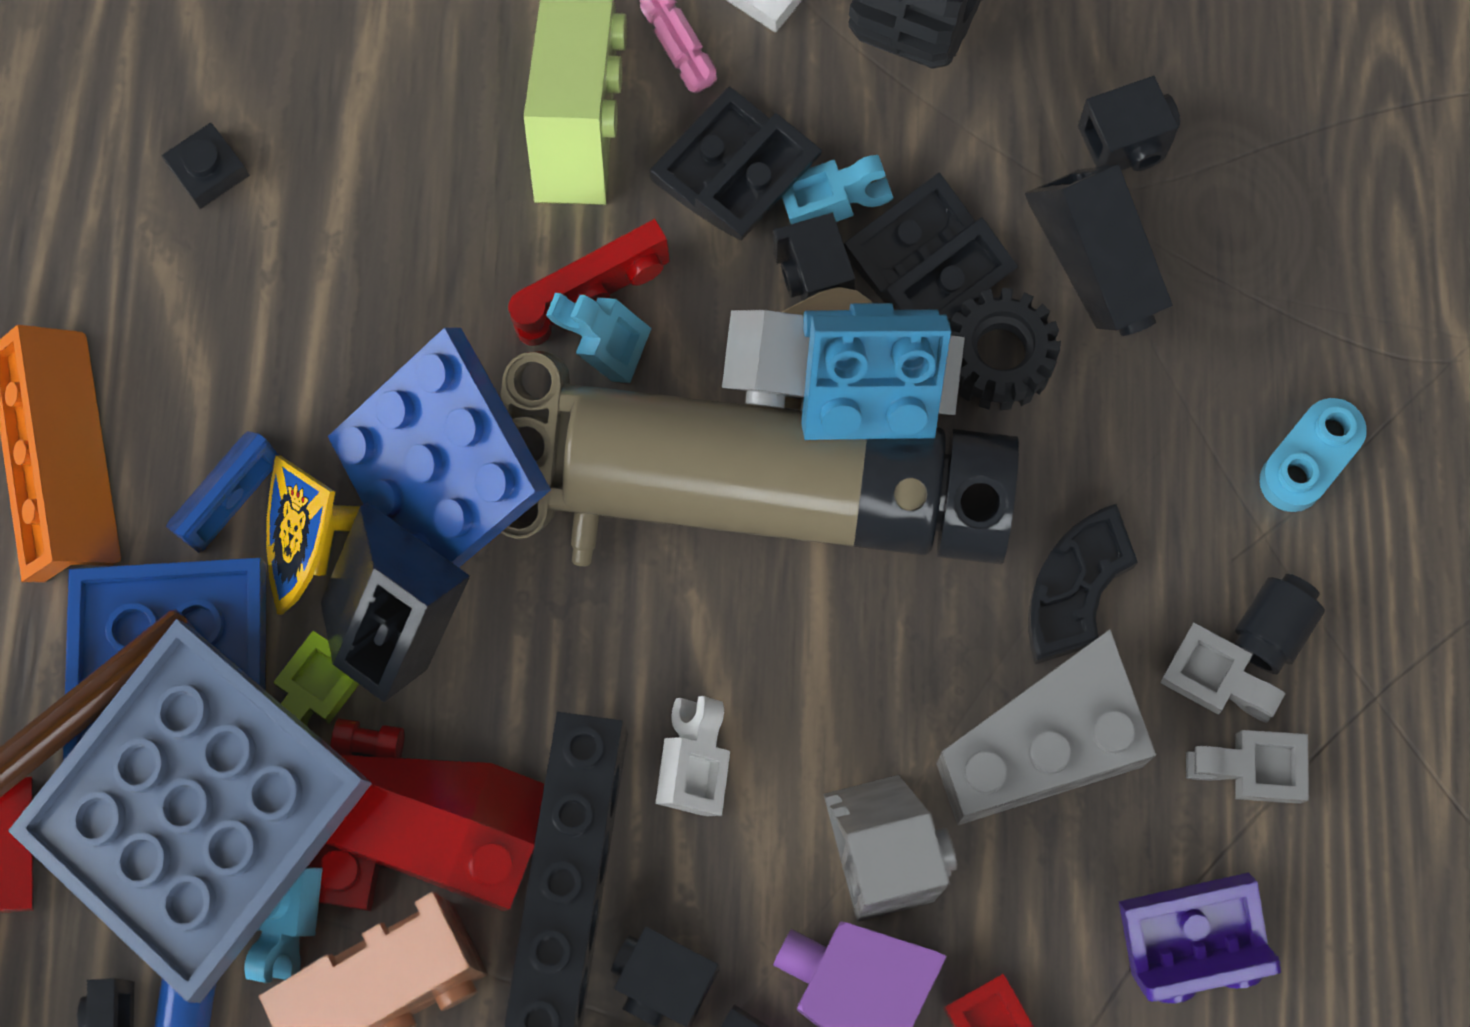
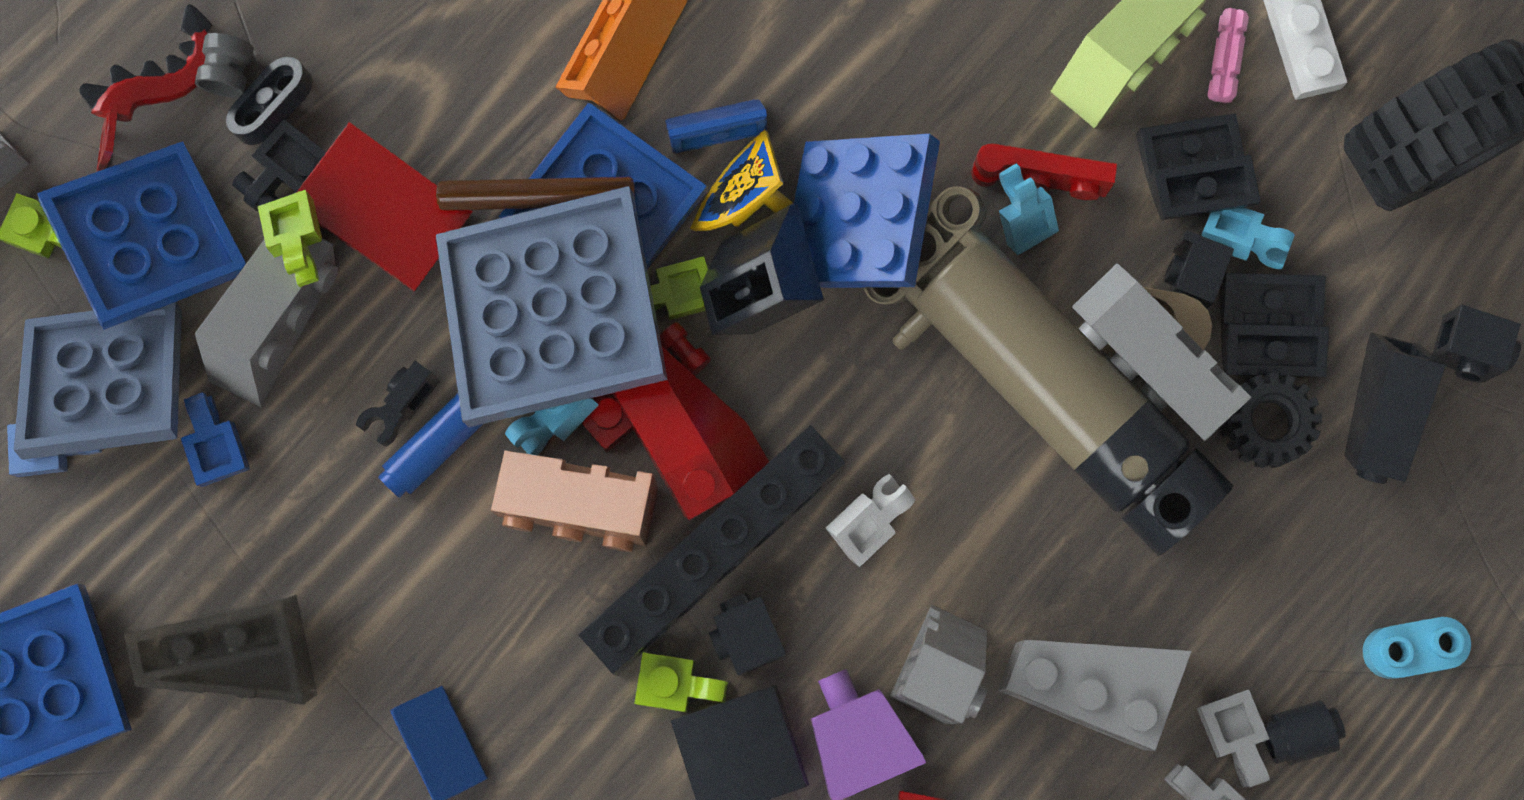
camera: 35 degrees right, 5 degrees up
(874, 372) = (1175, 374): dark azure plate -> none
(1072, 583) = (1193, 602): black tile -> none

